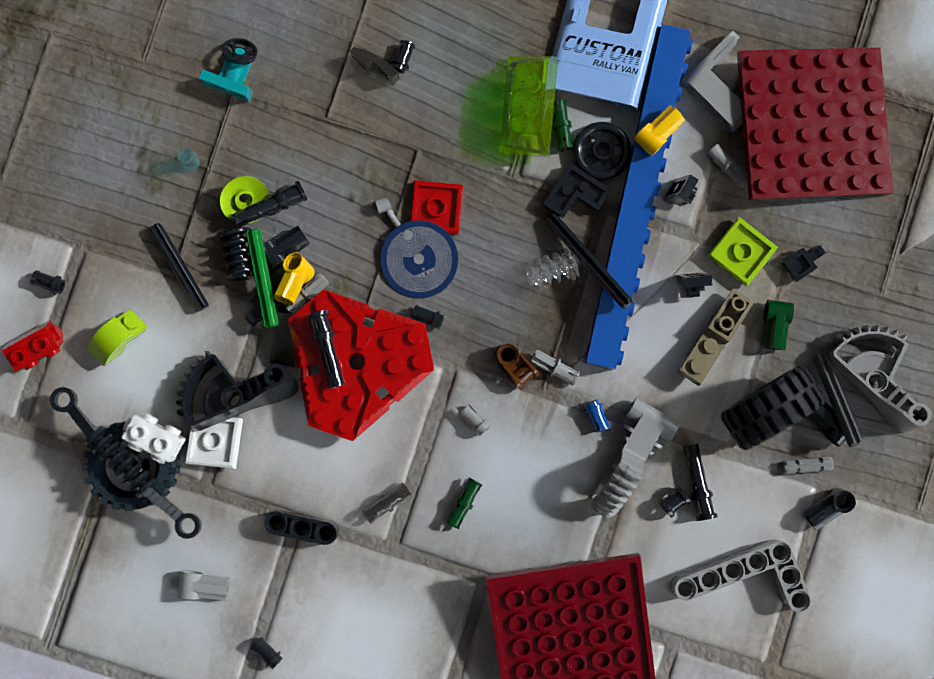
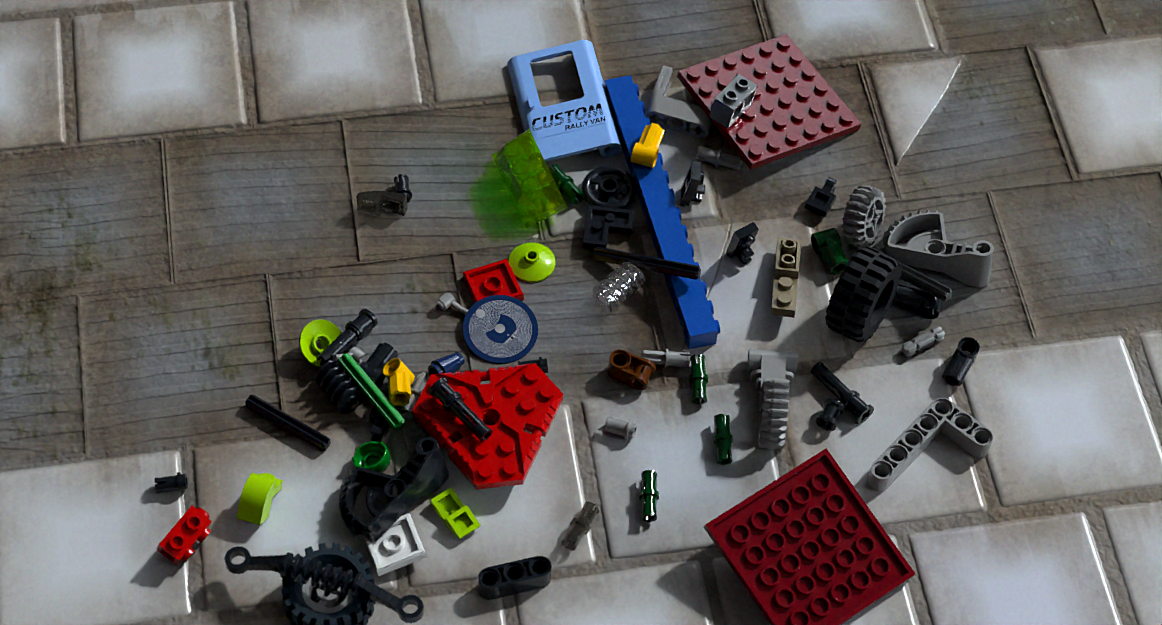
camera: 25 degrees left, 30 degrees down
(148, 435) = (341, 542): white brick -> none
(191, 164) = (255, 336): clear light blue pin -> none
(233, 345) = (372, 456): none -> green hair
(234, 70) = (260, 259): teal piece -> none
(272, 225) = (355, 352): none -> light grey hand
(283, 434) = (454, 514): none -> lime slope
(347, 278) = (446, 364): none -> dark blue cone
(489, 209) = (532, 269): none -> lime dish
(561, 478) = (723, 439): none -> dark green pin
(573, 404) = (698, 379): none -> dark green pin
(597, 415) = (722, 378): blue pin -> none
(742, 251) = (769, 211): lime plate -> none
(771, 121) = (733, 101): none -> dark grey brick
(827, 311) = (863, 216): none -> light grey gear

